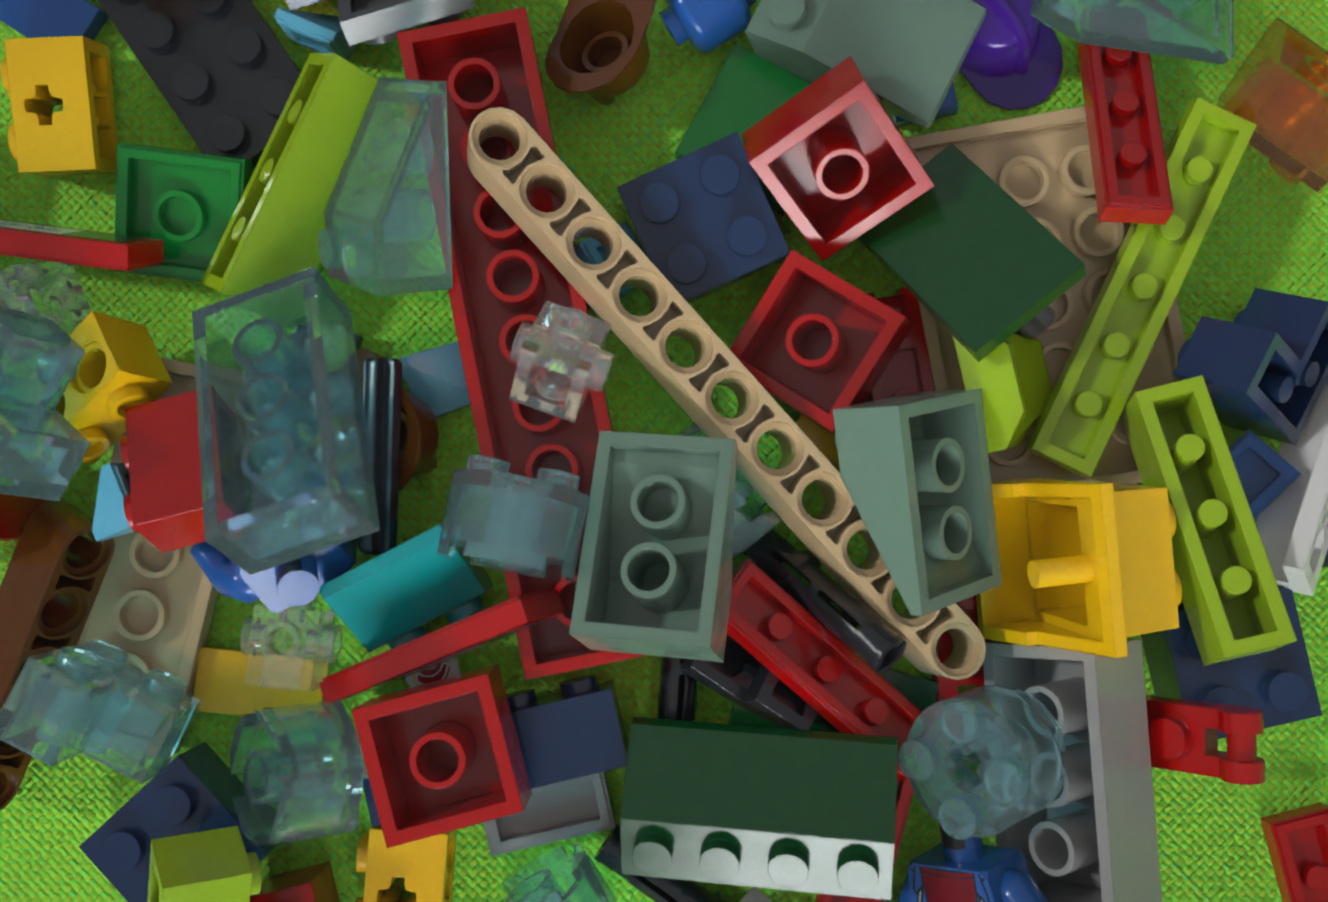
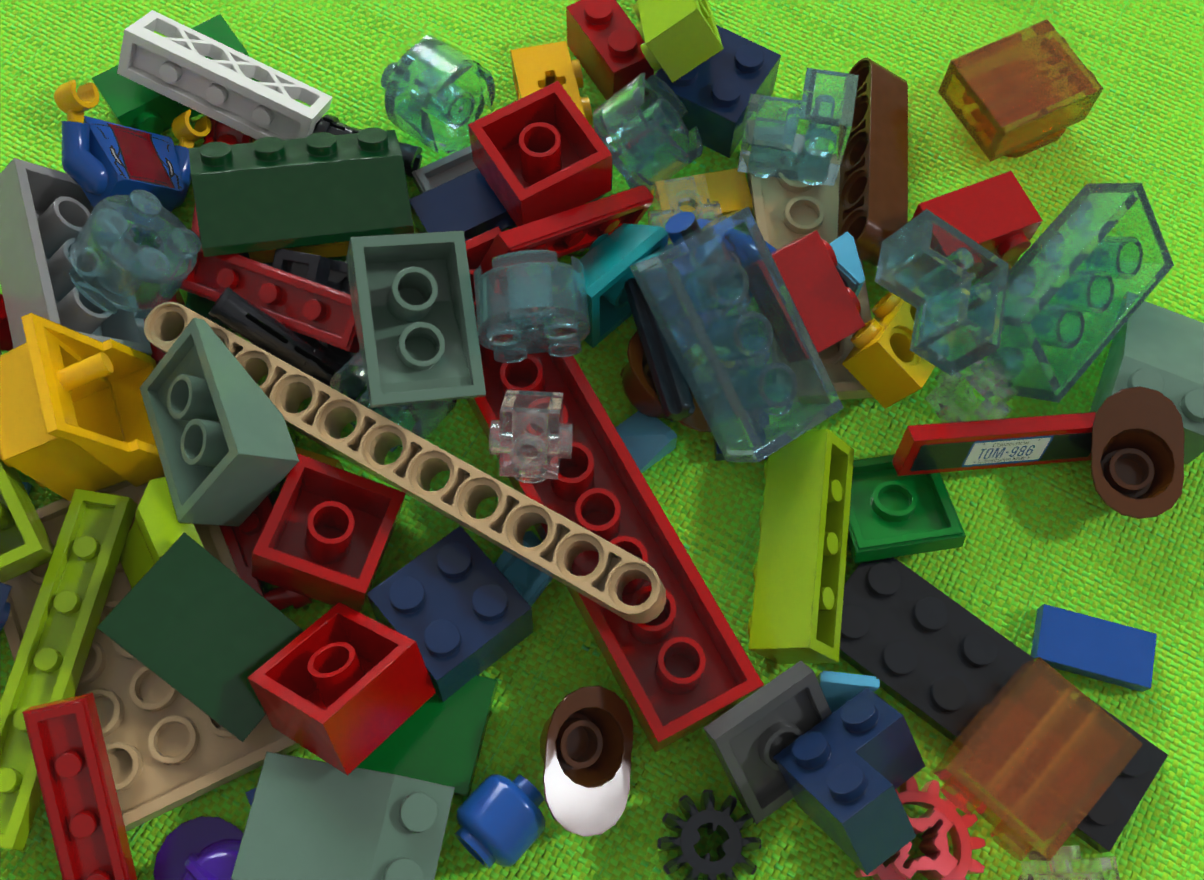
camera: 165 degrees right, 20 degrees down
(54, 73) = (1026, 557): yellow brick -> none
(392, 197) = (717, 543): clear light blue slope -> none

